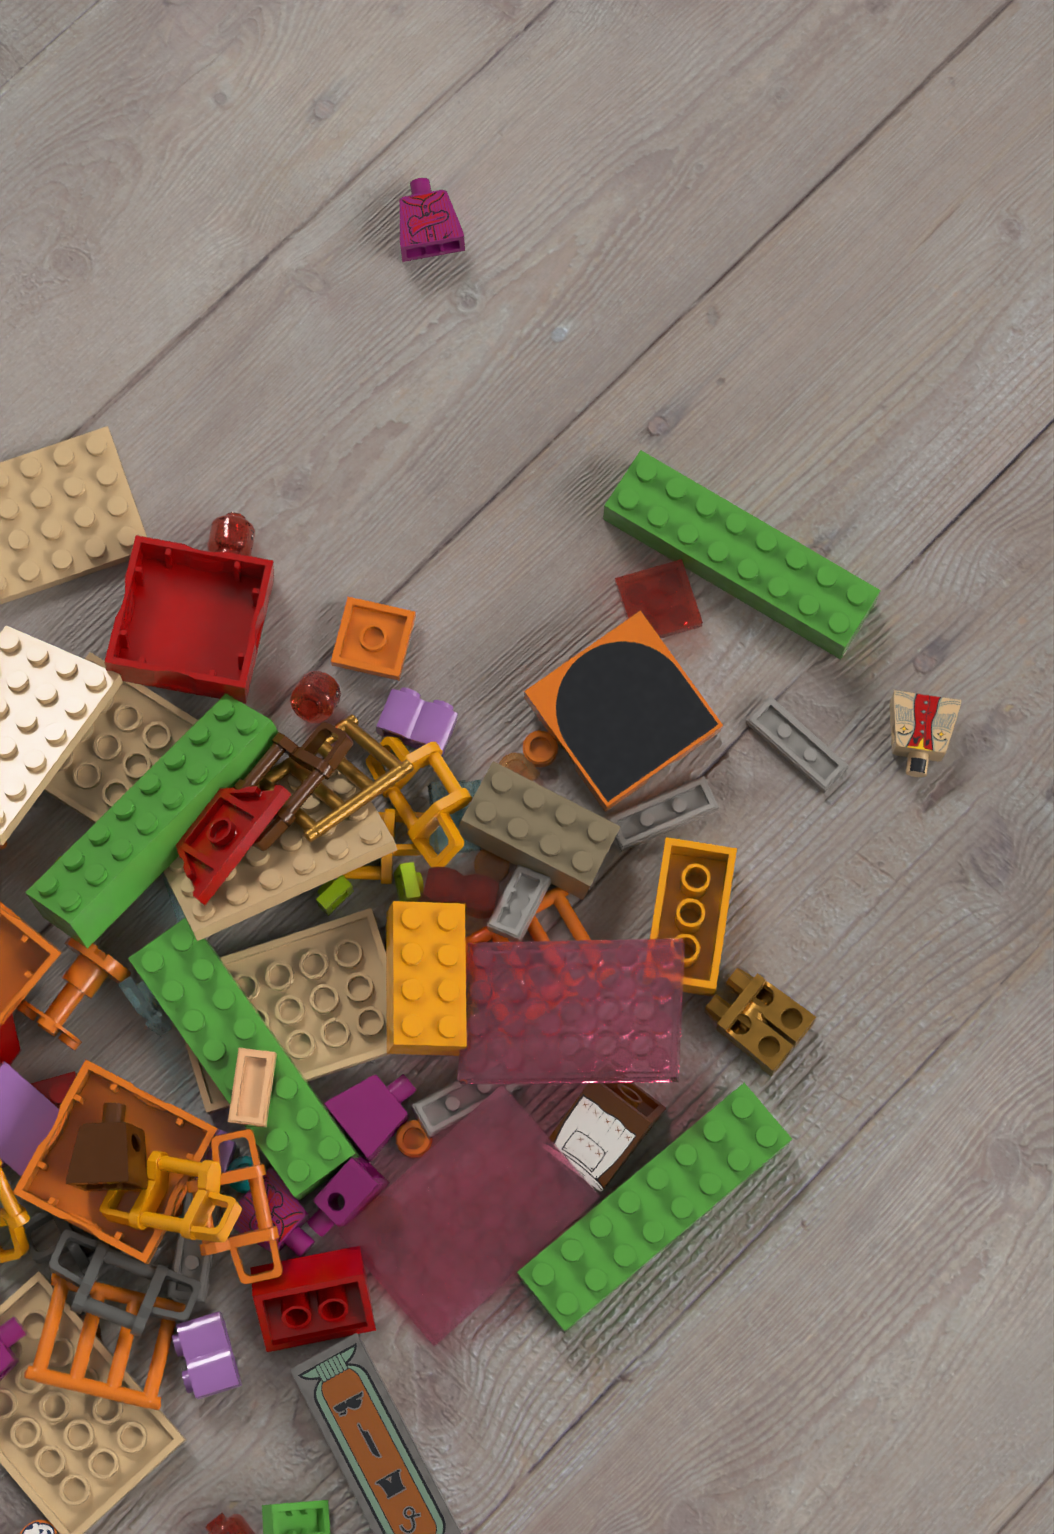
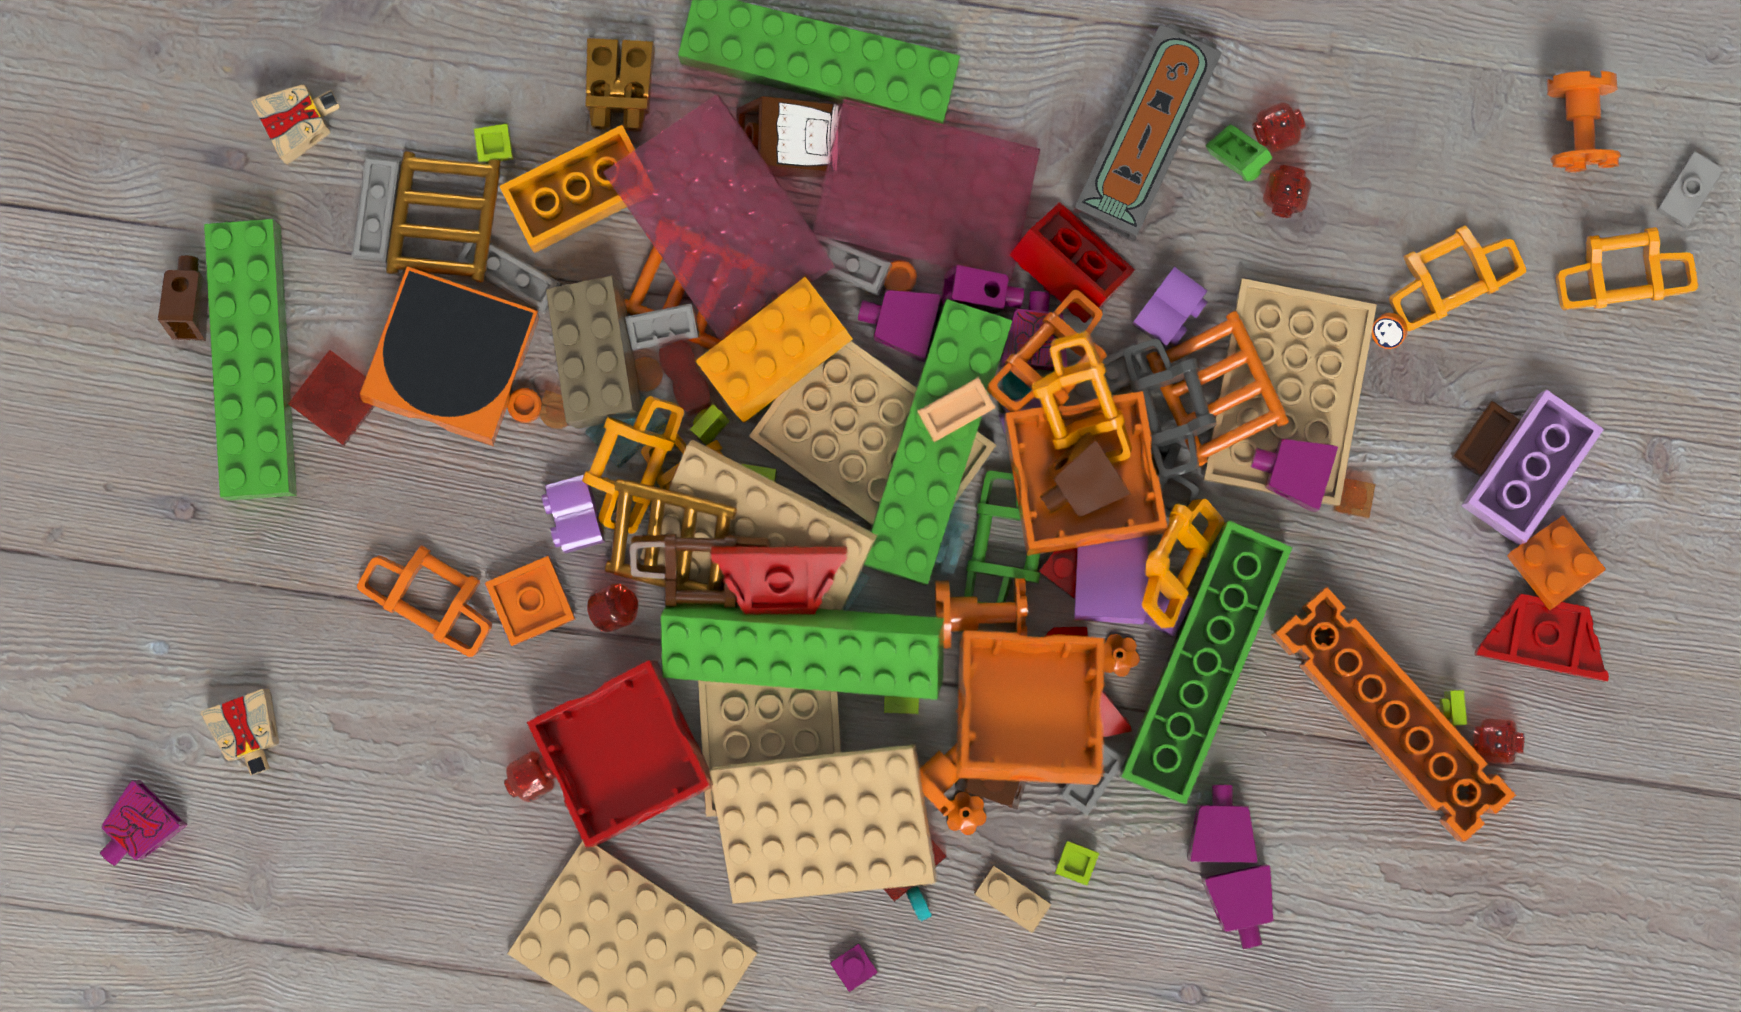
camera: 125 degrees left, 10 degrees up
(121, 1024) = (977, 564): none -> bright green bar
(411, 579) = (395, 603): none -> orange bar
(441, 349) = (245, 728): none -> torso
(734, 833) = (407, 196): none -> pearl gold bar
(782, 877) = (493, 143): none -> lime plate
(829, 534) = (184, 301): none -> reddish brown torso

